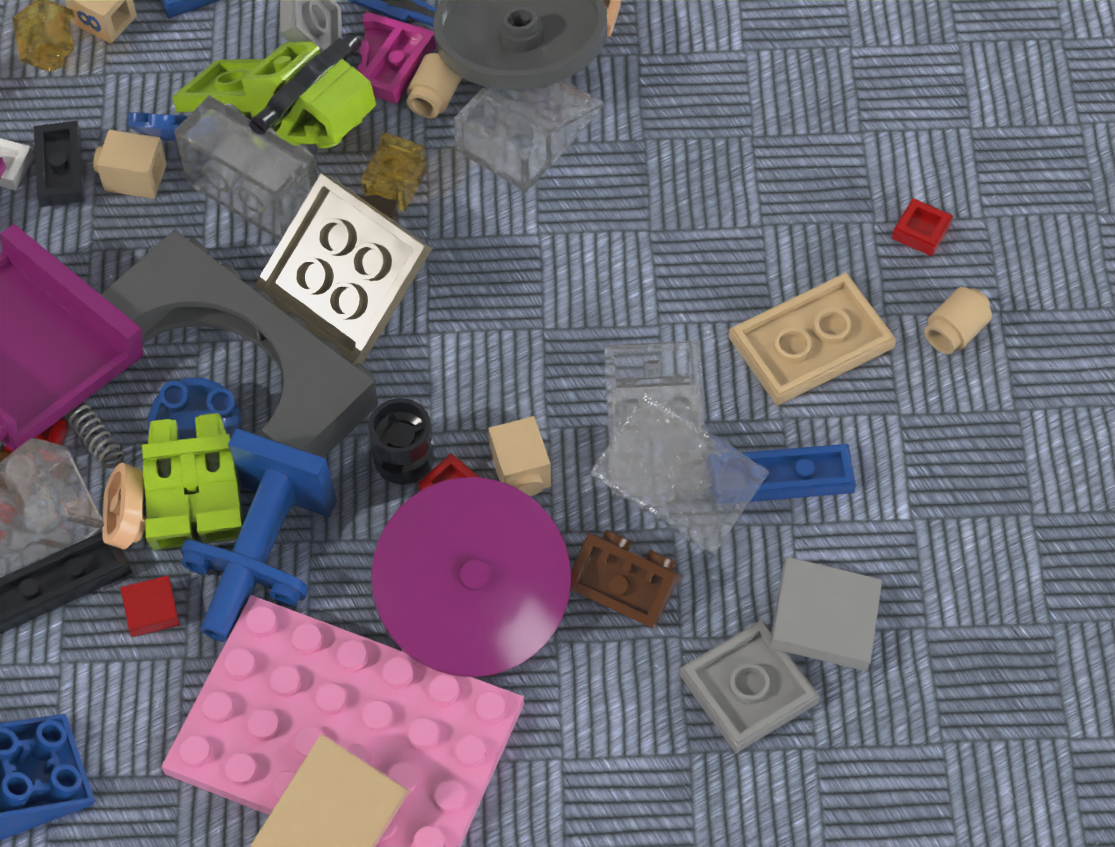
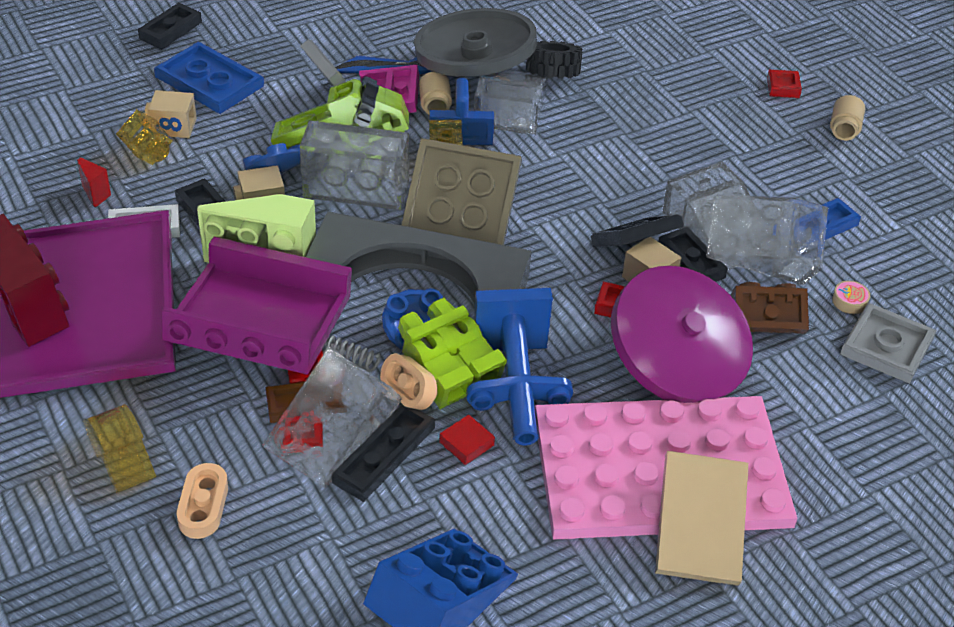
camera: 30 degrees left, 15 degrees down
(79, 230) = (266, 221): none -> yellowish green slope
(401, 441) = (572, 280): black wheel -> none
(444, 155) = (476, 125): none -> blue plate
(529, 399) = (637, 230): none -> black tile
(582, 445) = (693, 253): none -> black plate
(620, 83) = (555, 60): none -> black tyre
(750, 600) = (851, 297): none -> tile
(811, 338) = (770, 155): tan tile -> none
(826, 614) = (903, 285): light grey tile -> none

